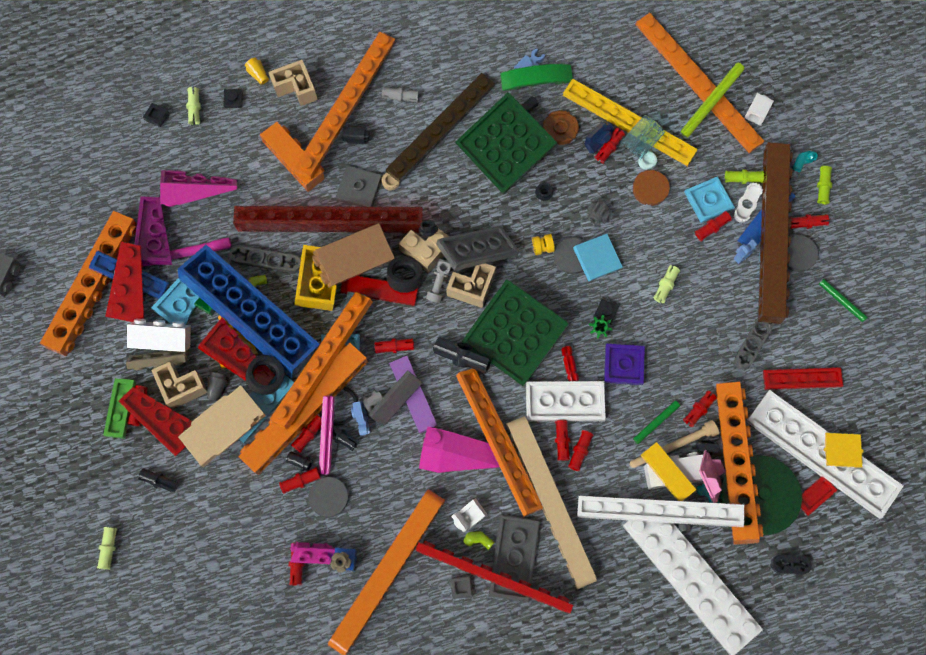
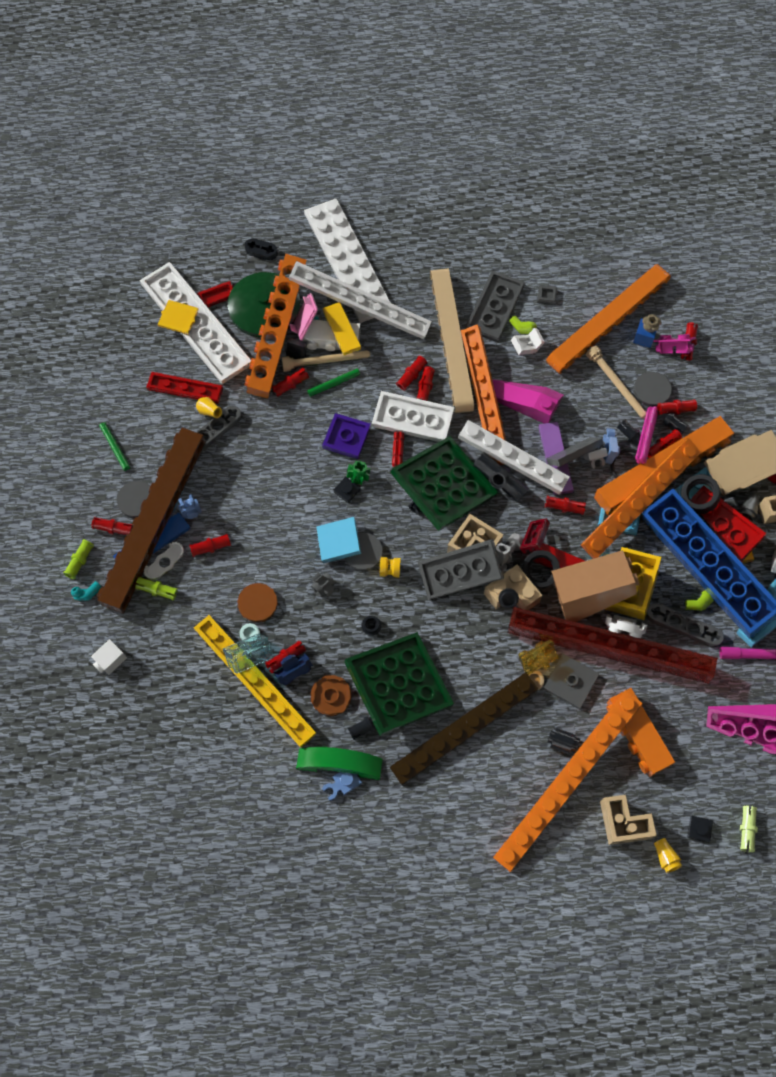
camera: 165 degrees left, 5 degrees down
(317, 229) = (626, 624): none -> white plate
(390, 192) = (538, 657): none -> clear yellow hips
(392, 519) = (595, 354): none -> tan piece
(400, 94) = (502, 781): light grey pin -> none
(413, 302) = (535, 534): none -> dark red tile
(455, 374) = (513, 457): none -> white plate
(503, 579) = (519, 288): red plate -> none
(666, 284) = (278, 499): yellowish green pin -> none
(699, 82) = (160, 714): orange plate -> none
(709, 199) = (201, 575): medium azure tile -> none
(712, 100) = (154, 677): lime axle -> none
(769, 357) = (208, 408): none -> yellow cone

